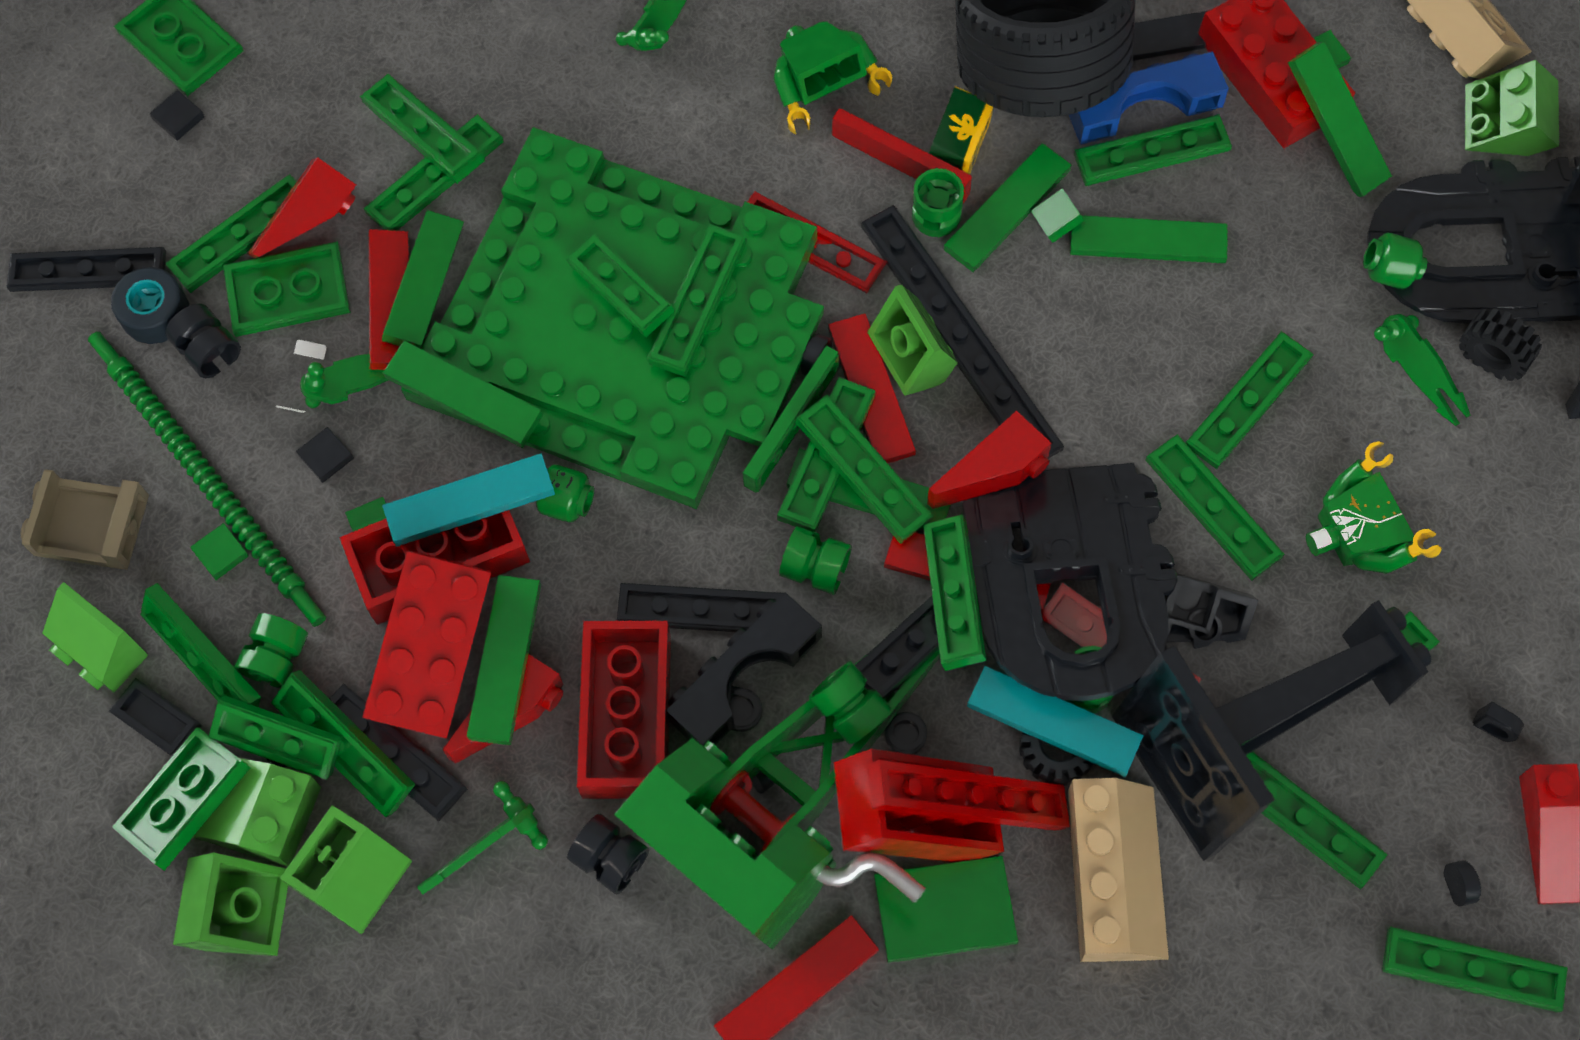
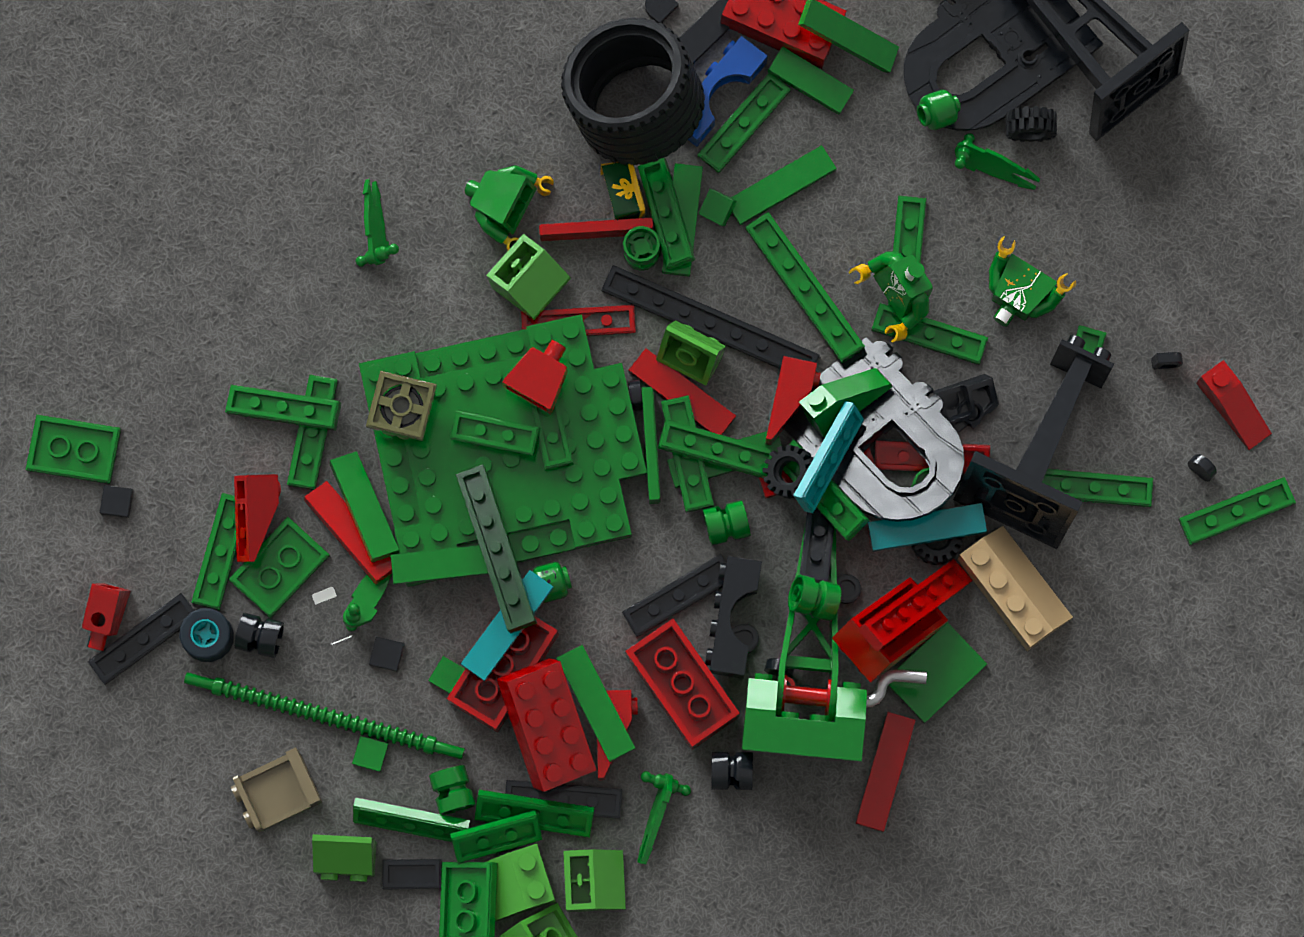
camera: 35 degrees left, 10 degrees up
(64, 209) = (111, 603): none -> red torso
(519, 407) = (496, 549): none -> dark green plate
(537, 190) = (402, 407): none -> olive piece
(712, 250) = (539, 376): none -> red torso
(787, 154) = (528, 277): none -> bright green slope
(939, 562) = (776, 465): none -> black tyre
(987, 553) = (828, 457): none -> teal tile
(993, 186) = (666, 213): none -> green tile
(1047, 503) = (826, 401): none -> green slope
(1098, 365) = (805, 288): none -> green tile
(1218, 425) = (904, 287): none -> green torso
(1261, 149) = (810, 80): none -> green tile

